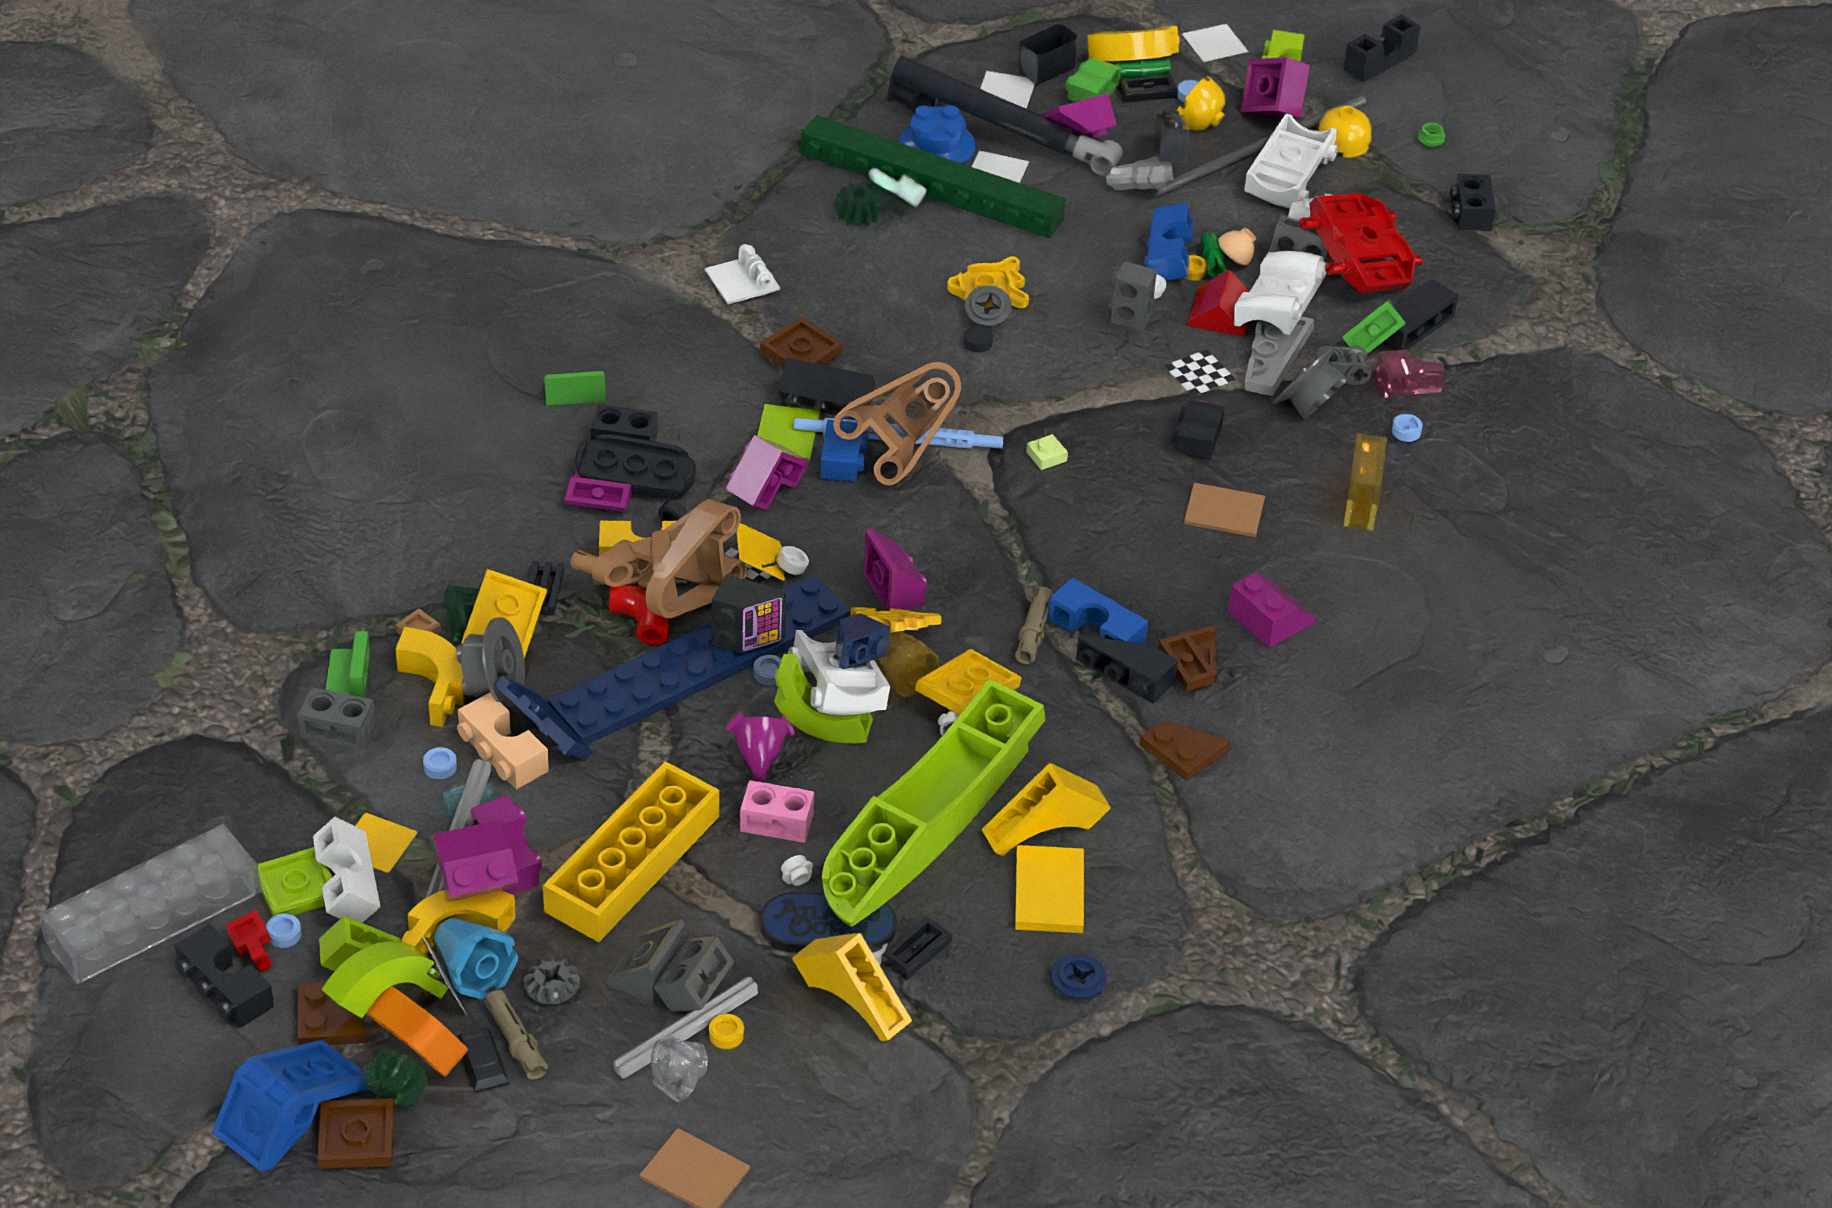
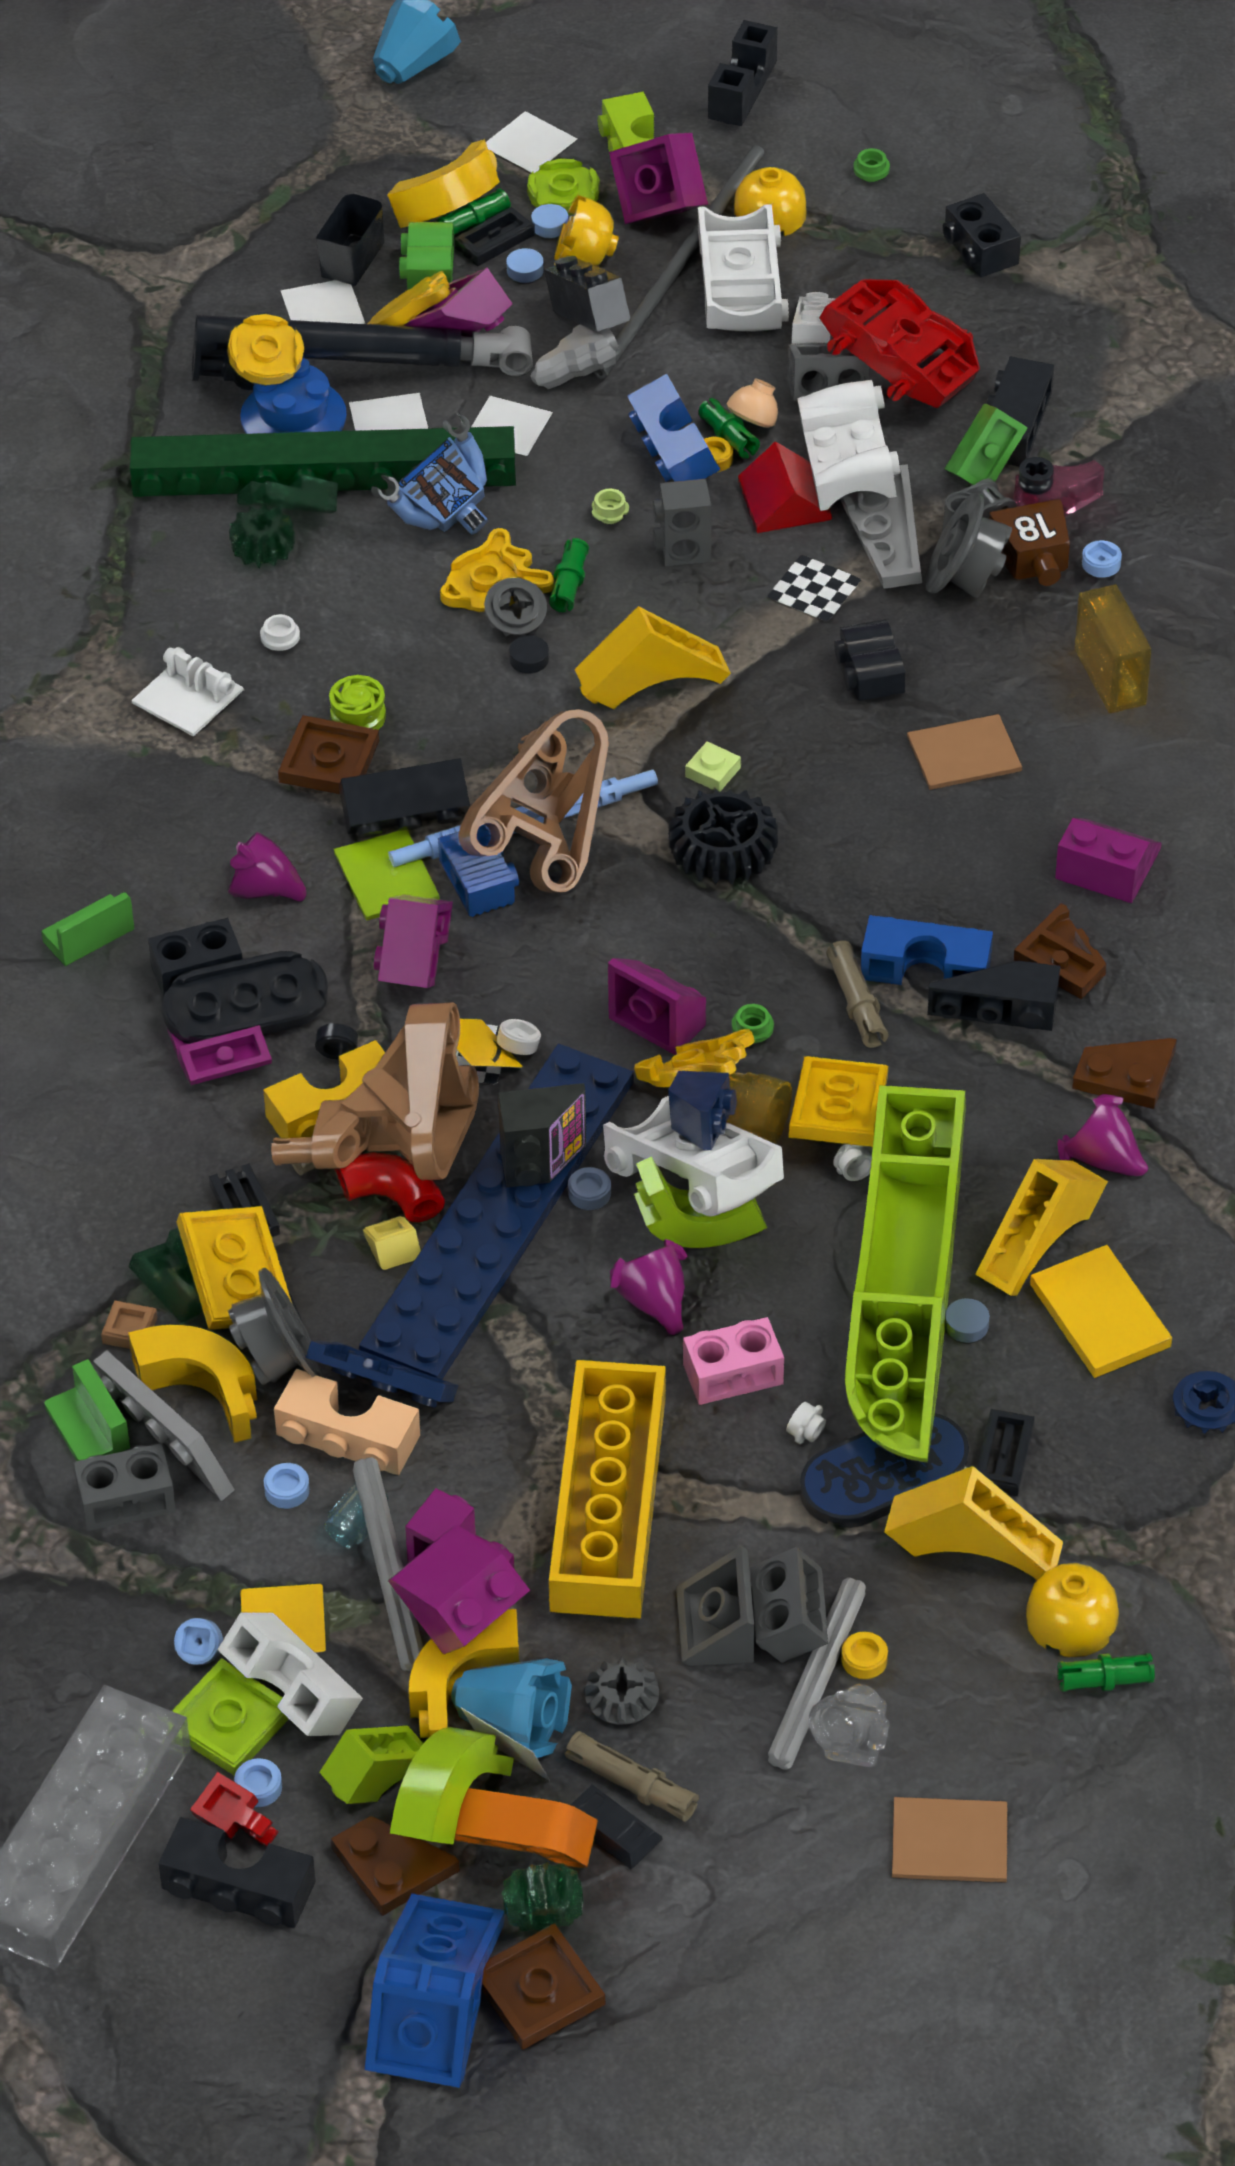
camera: 25 degrees left, 5 degrees up
(307, 826) = (198, 1641): none -> light blue tile
(383, 689) = (163, 1424): none -> light grey wing
(618, 648) = (393, 1242): none -> light yellow slope
(703, 395) = (264, 871): none -> magenta hat
(827, 265) = (279, 633): none -> white plate
(844, 324) = (358, 702): none -> lime wheel
(876, 1114) = (1105, 1672): none -> green pin
(884, 1065) = (1072, 1610): none -> yellow cylinder
(932, 92) = (265, 349): none -> yellow tile
(952, 614) = (756, 1019): none -> bright green plate
(954, 855) = (967, 1320): none -> sand blue tile
(991, 215) = (442, 485): none -> torso
(1018, 494) = (723, 835): none -> black gear
(1039, 301) = (569, 575): none -> green pin
(1047, 362) = (643, 654): none -> yellow arch
(1062, 100) = (413, 301): none -> yellow tile
(1078, 201) = (527, 421): none -> white sticker
(1098, 271) = (609, 506): none -> yellowish green plate
(1129, 781) = (1105, 1140): none -> magenta hat
(1150, 109) = (524, 265): none -> light blue tile
(1221, 70) = (561, 182): none -> lime tile
(1367, 398) = (1037, 541): none -> reddish brown torso
(1391, 355) = (1036, 475): none -> black bush

